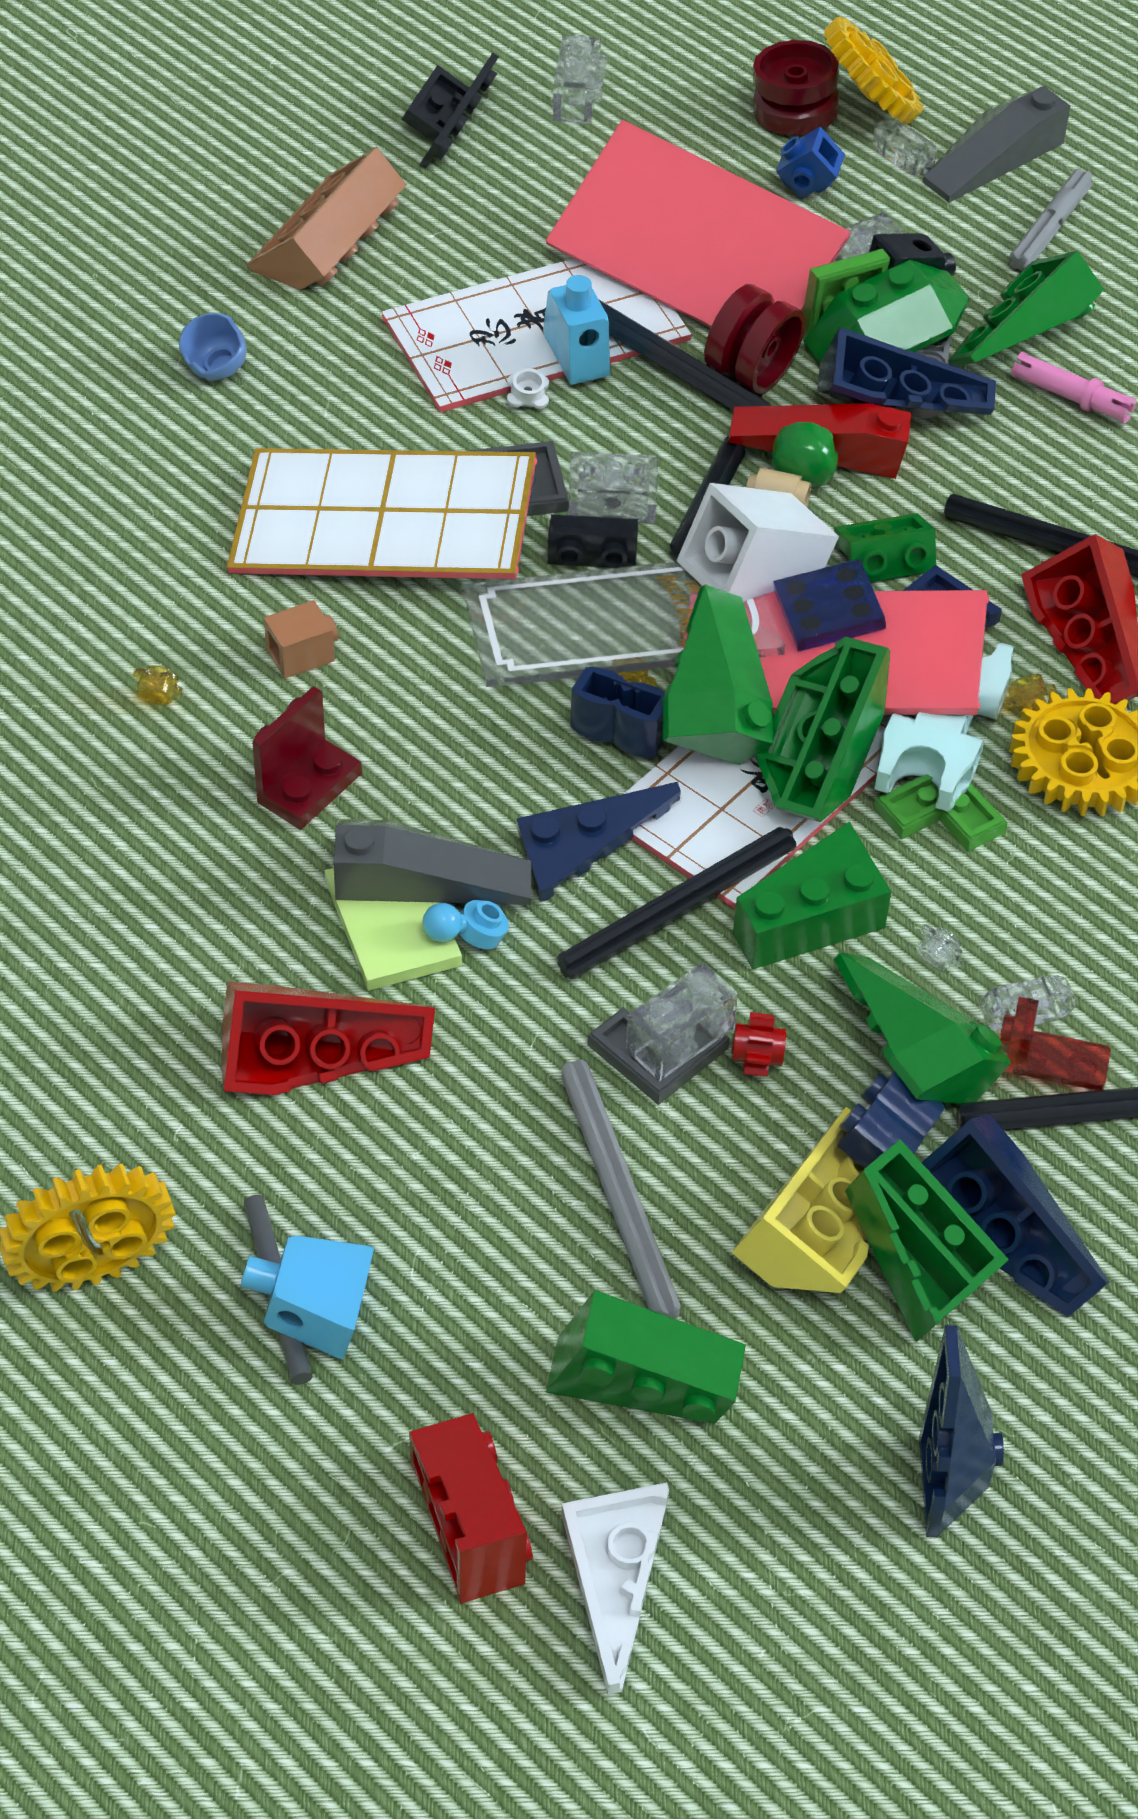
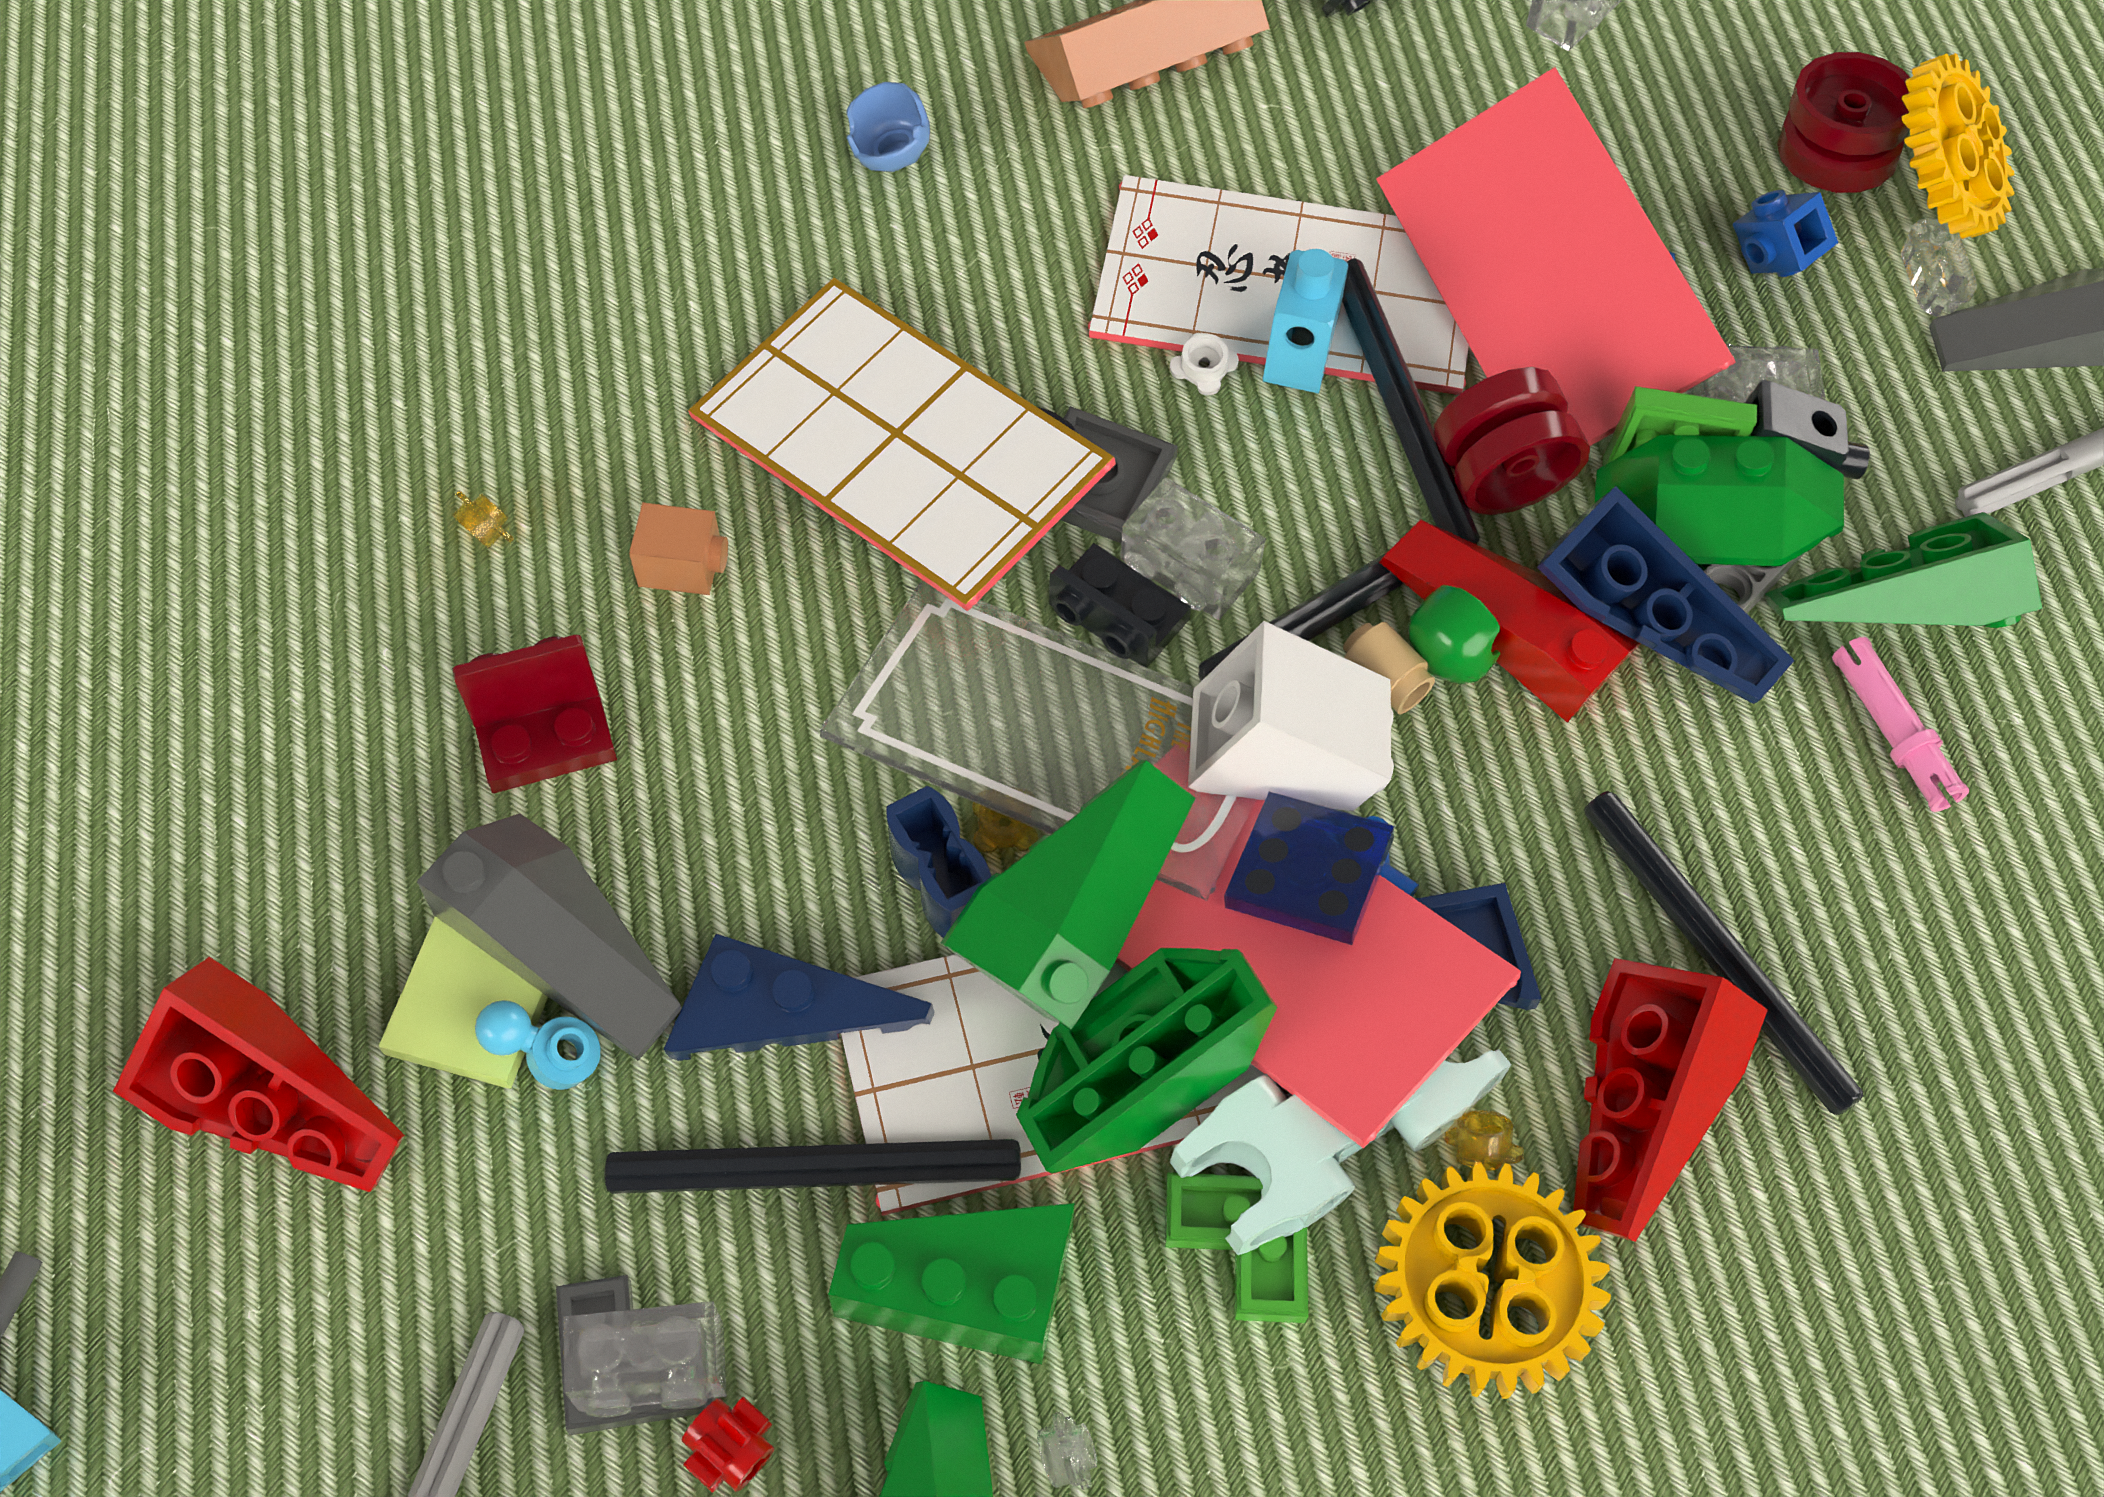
camera: 35 degrees right, 10 degrees up
(890, 546) = (1468, 818): green bracket -> none

